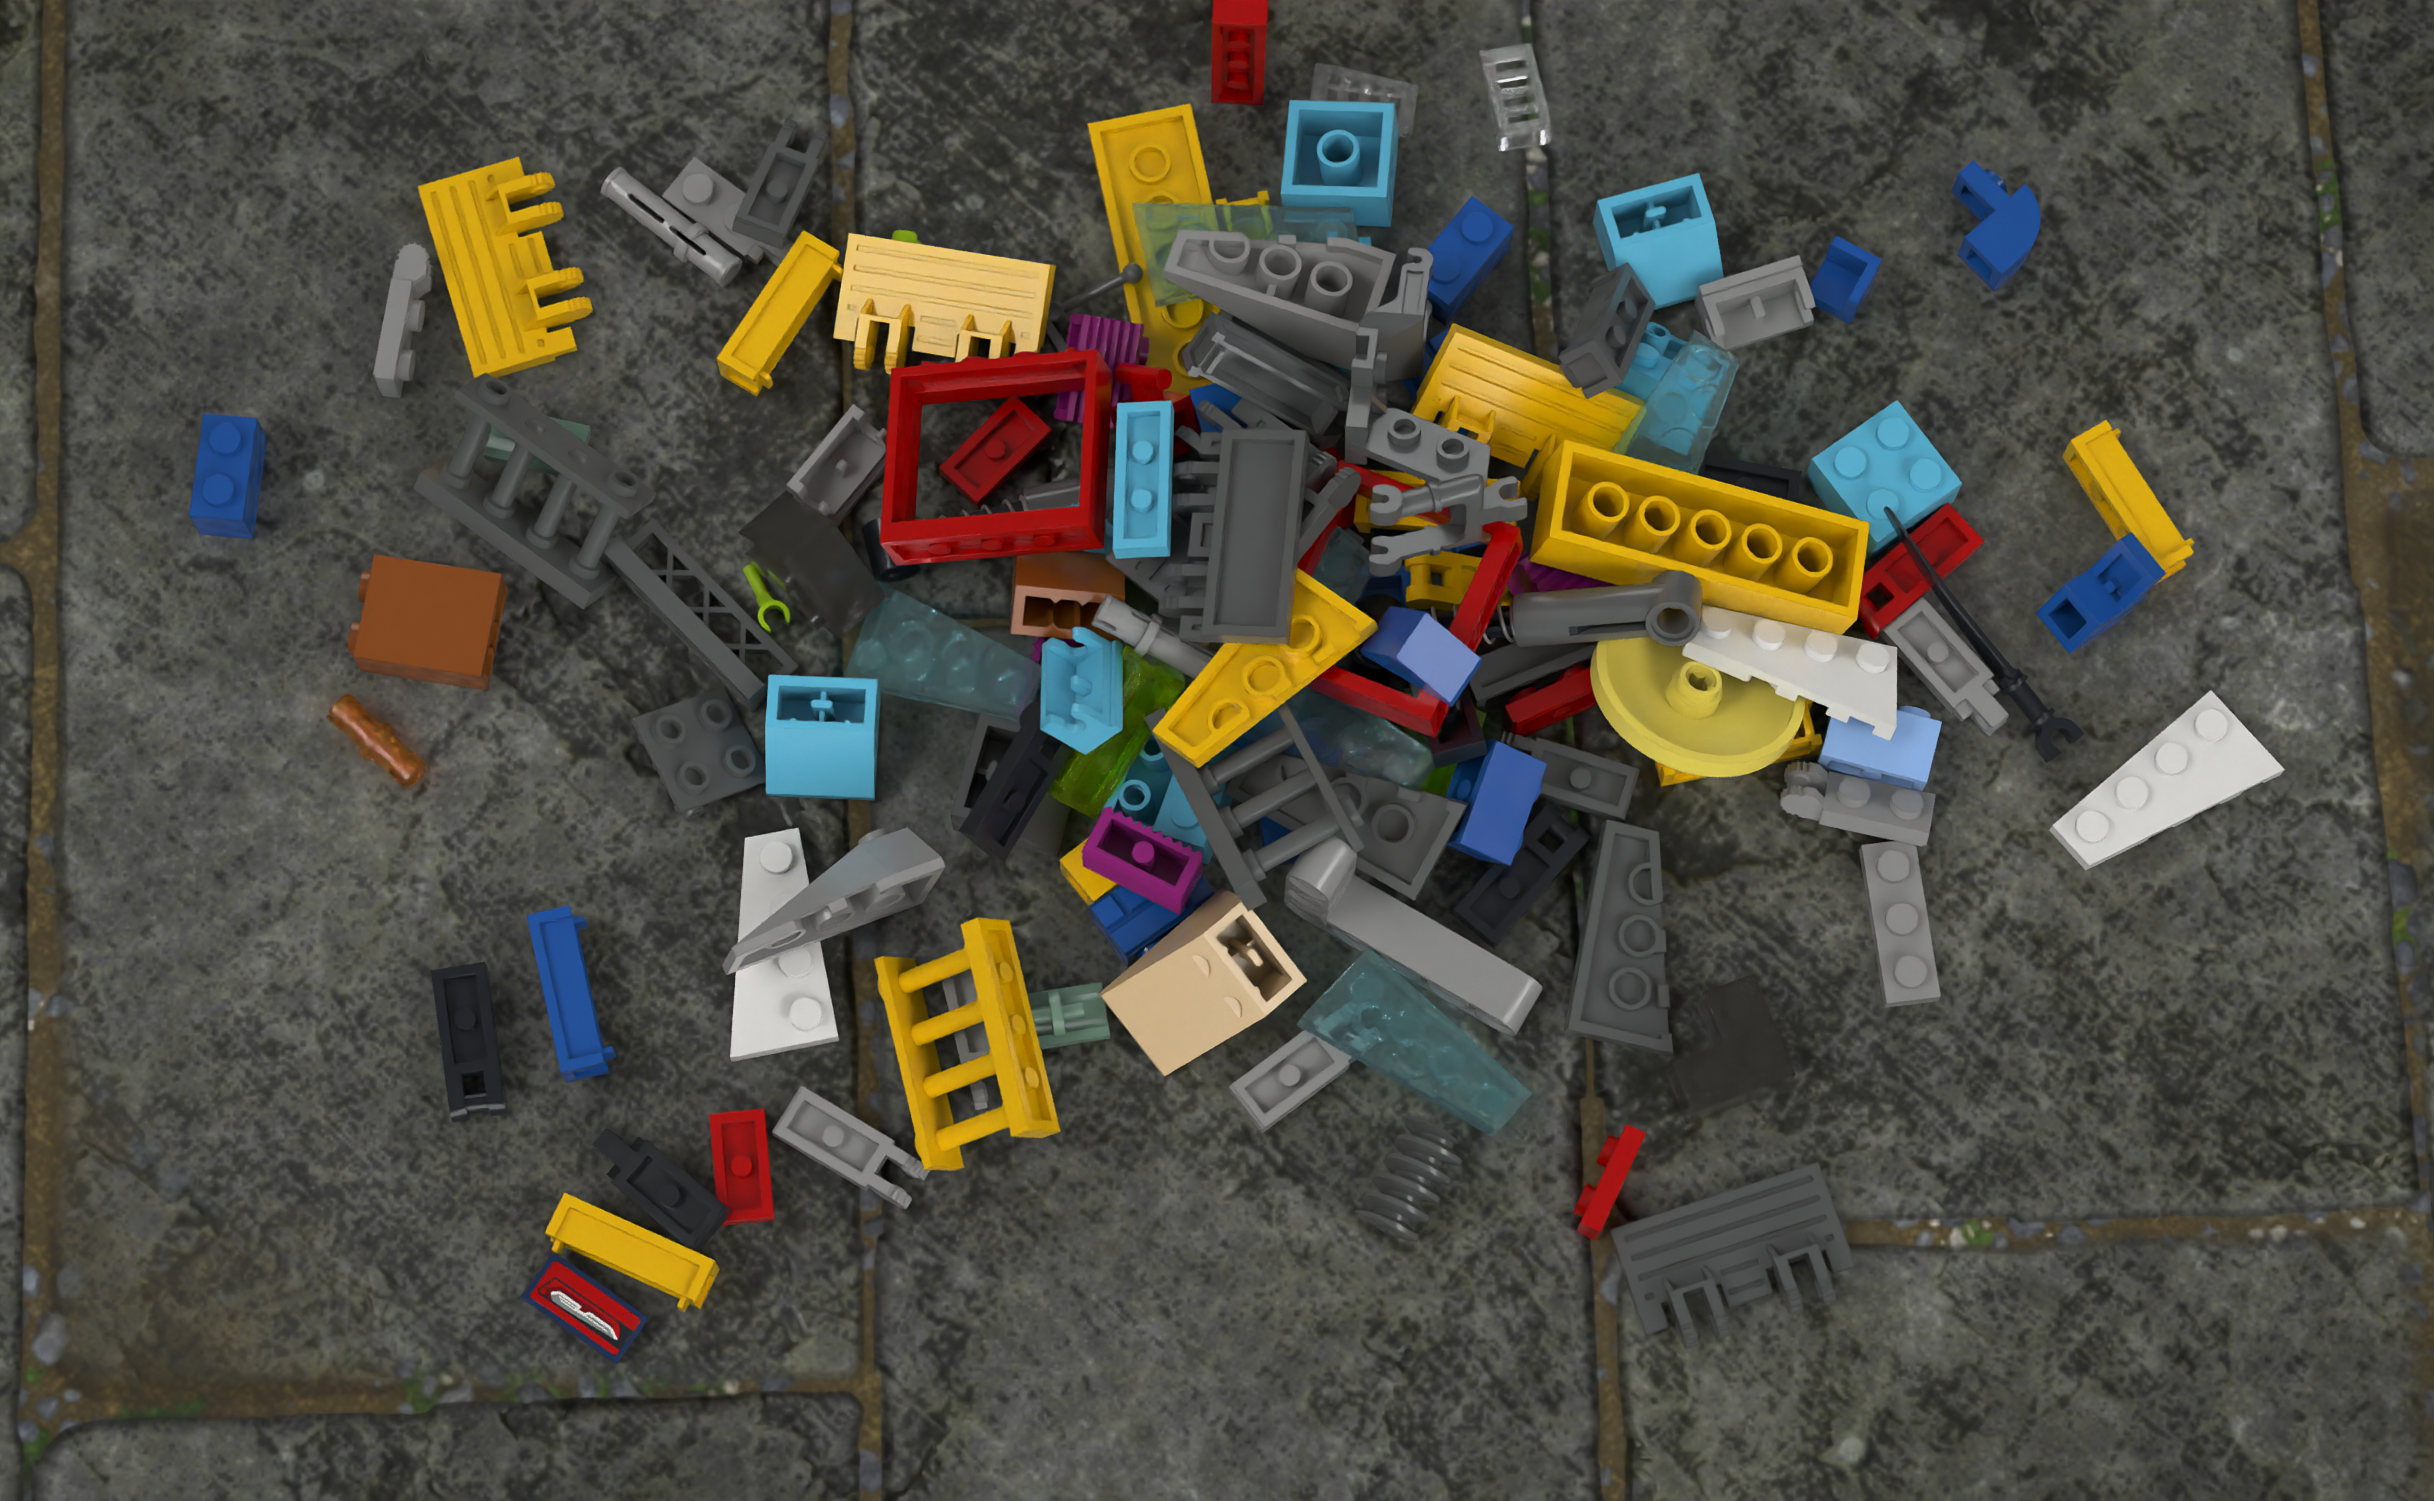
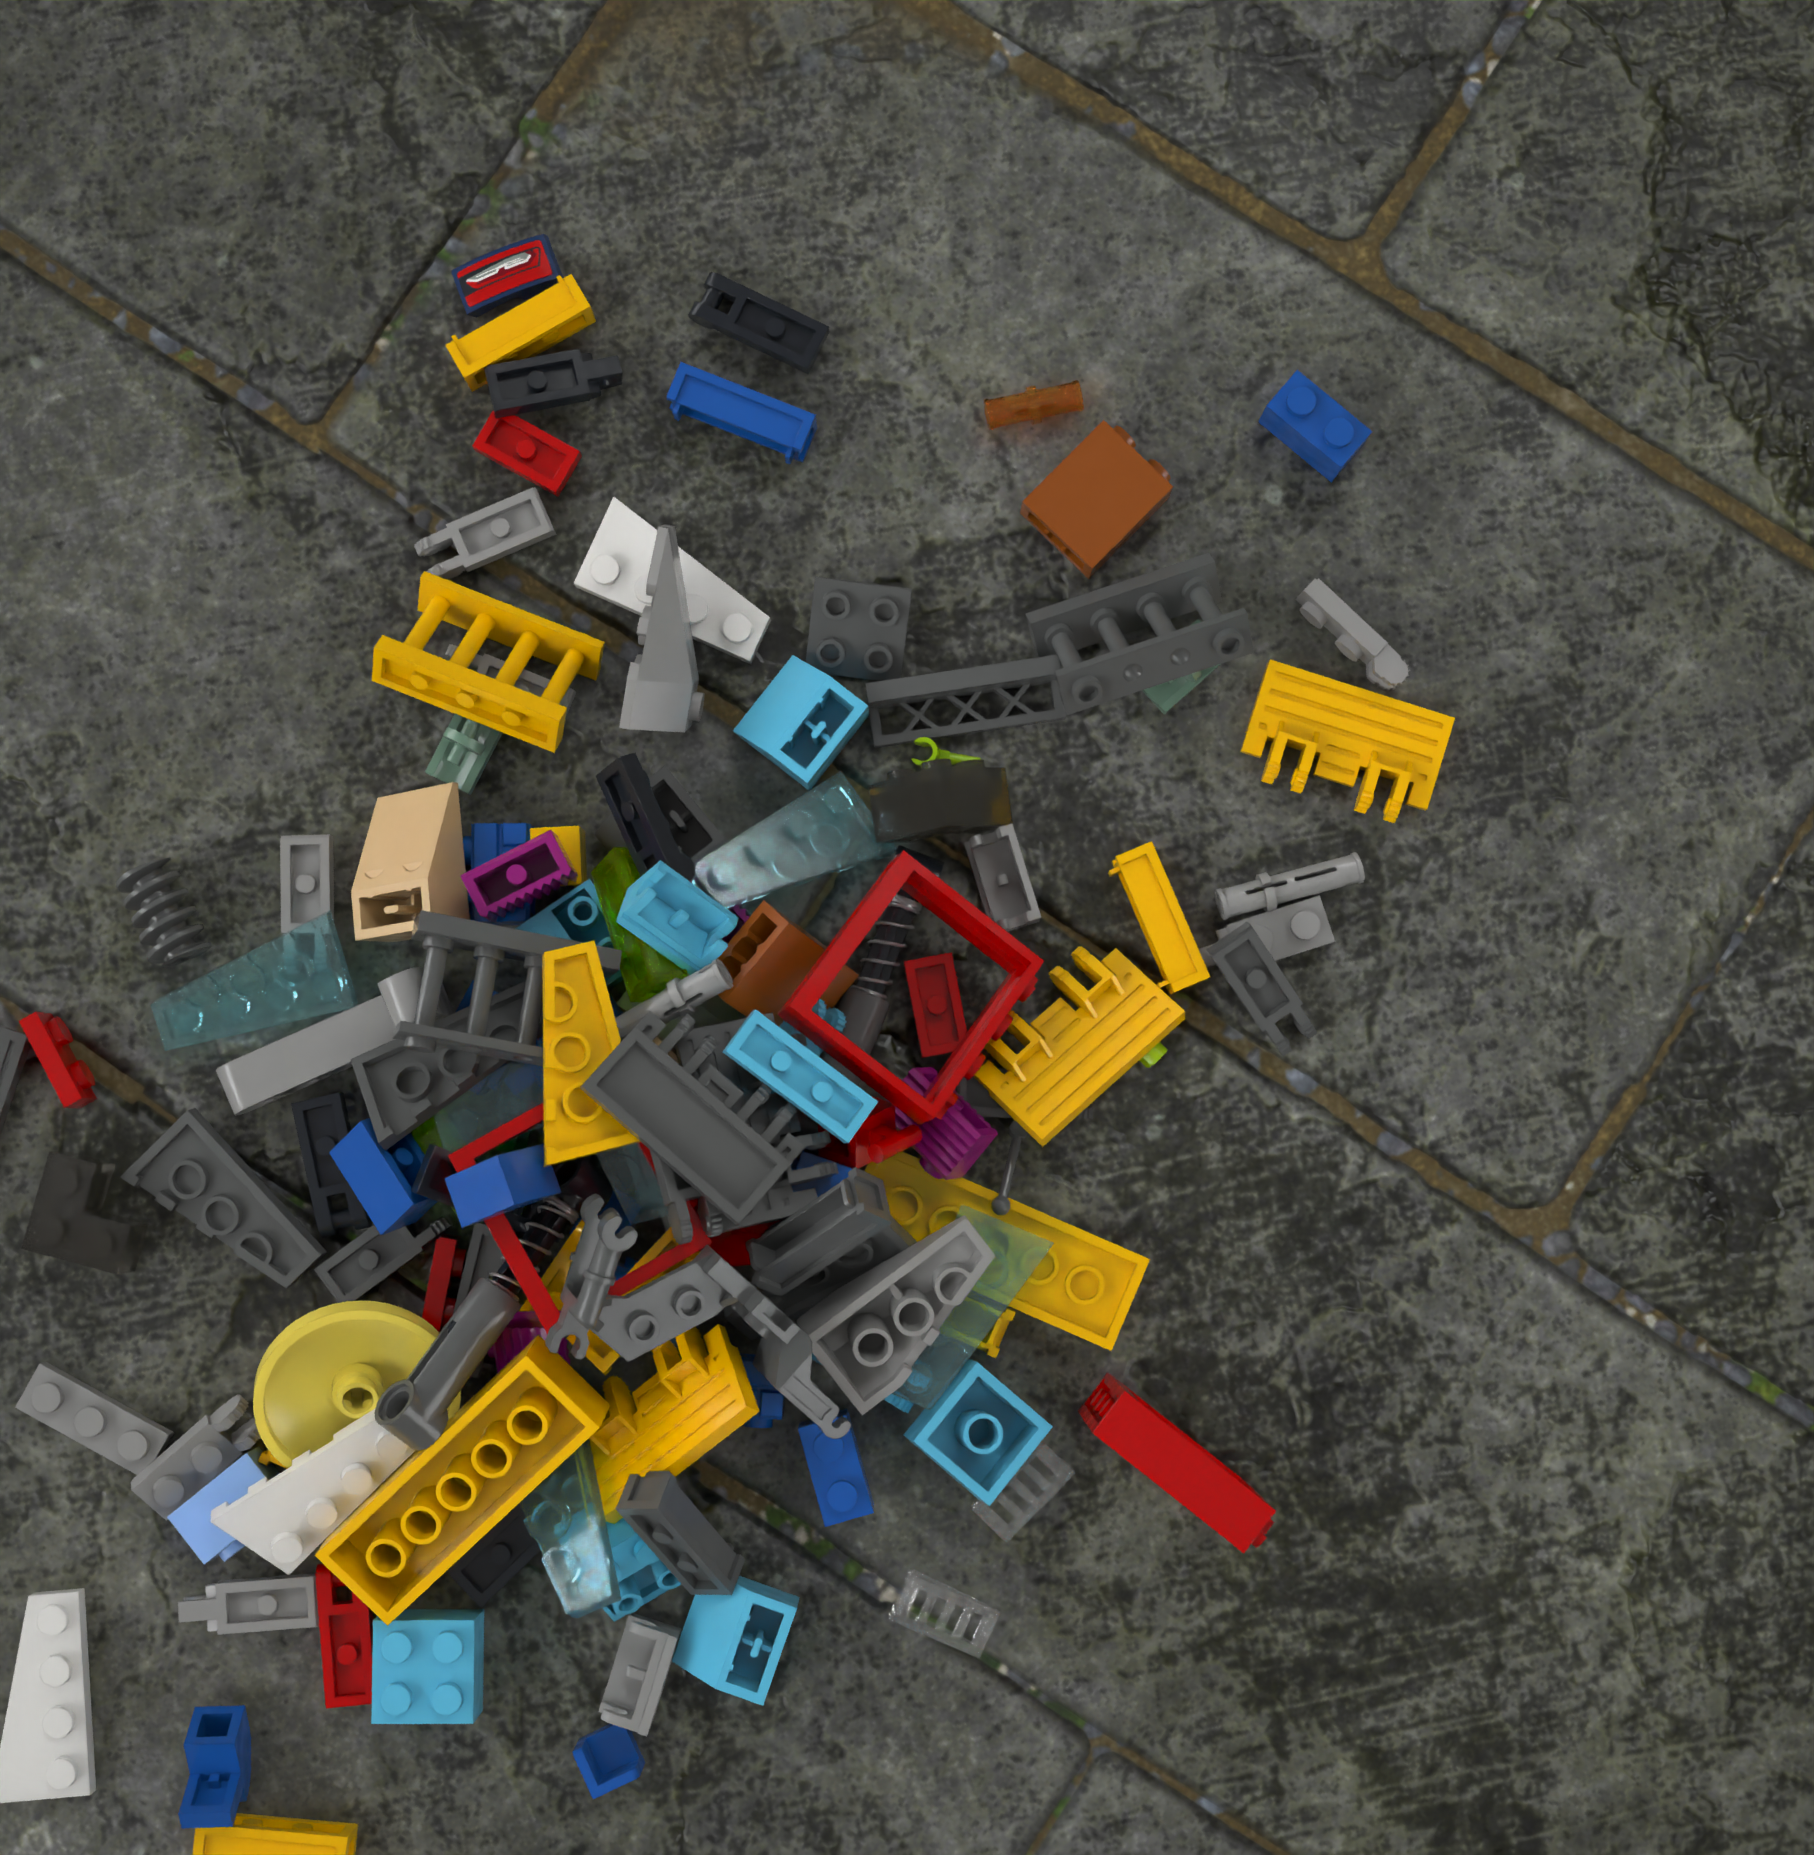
camera: 125 degrees right, 10 degrees up
(2010, 680) = (207, 1645): black sword -> none

